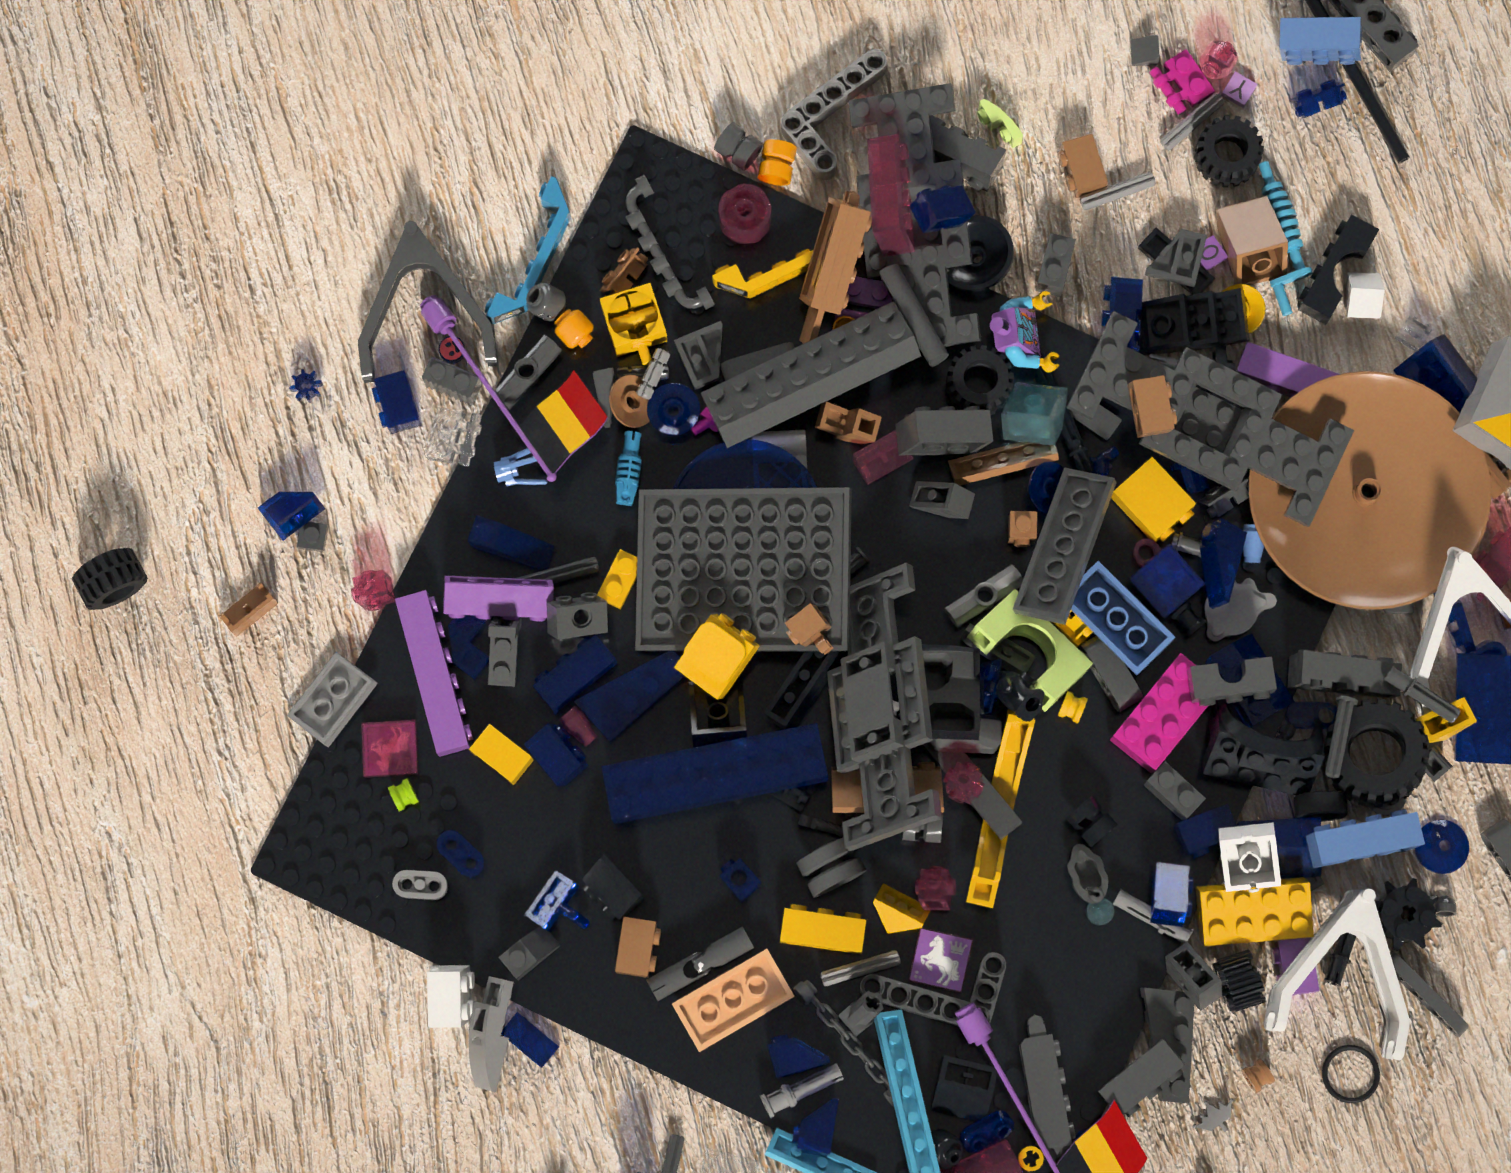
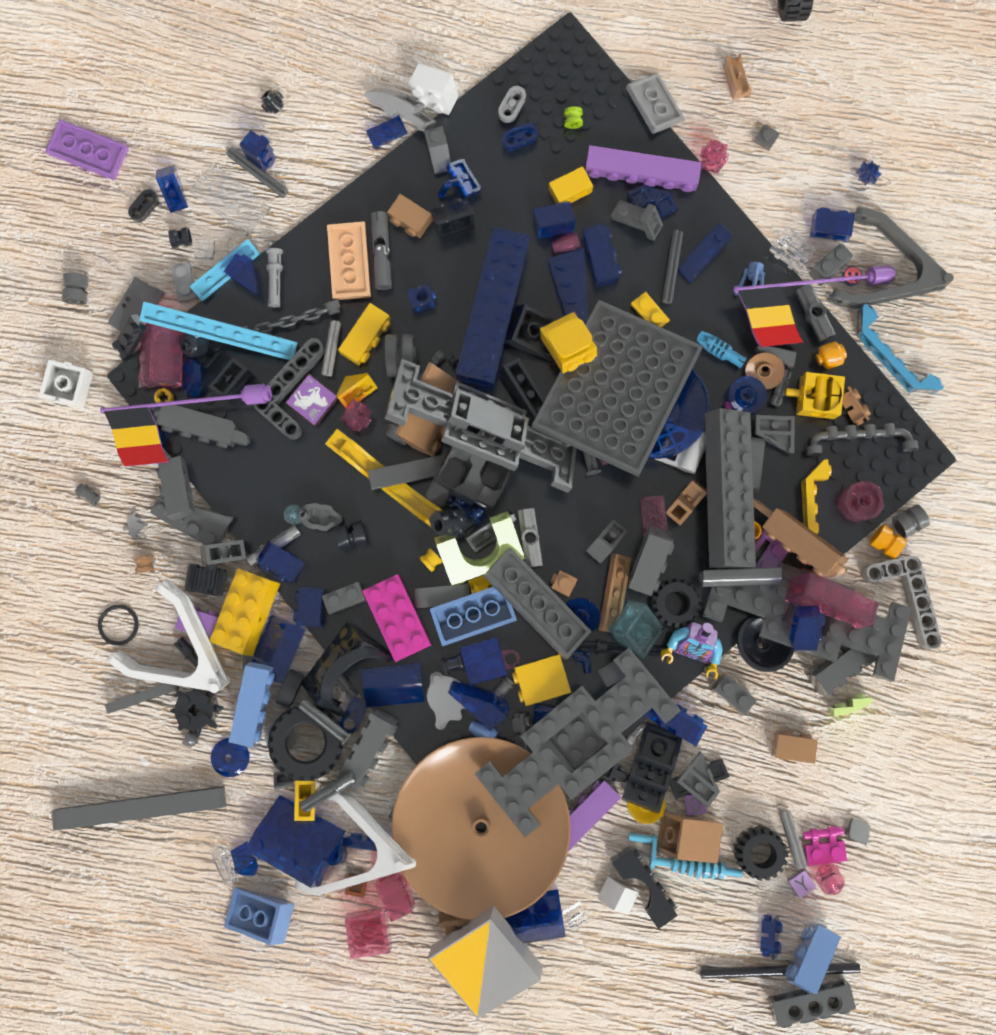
camera: 115 degrees right, 5 degrees up
(290, 511) = (788, 125): clear blue slope -> none
(389, 748) = (607, 124): clear pink tile -> none
(497, 597) = (672, 226): medium lavender brick -> none
(546, 301) = (858, 344): dark grey head -> none
(590, 621) = (629, 276): dark grey brick -> none
(653, 373) = (777, 391): light grey axle -> none
(794, 1056) = (293, 278): clear blue slope -> none
(809, 627) = (558, 405): medium nougat brick -> none
(862, 1012) = (301, 332): dark grey piece -> none
(964, 792) = (412, 469): clear pink brick -> none
(1117, 191) = (766, 763): light grey axle -> none
(1152, 406) = (602, 703): medium nougat brick -> none
(1249, 857) = (275, 622): white brick -> none
(1256, 681) = (387, 684): dark grey arch -> none

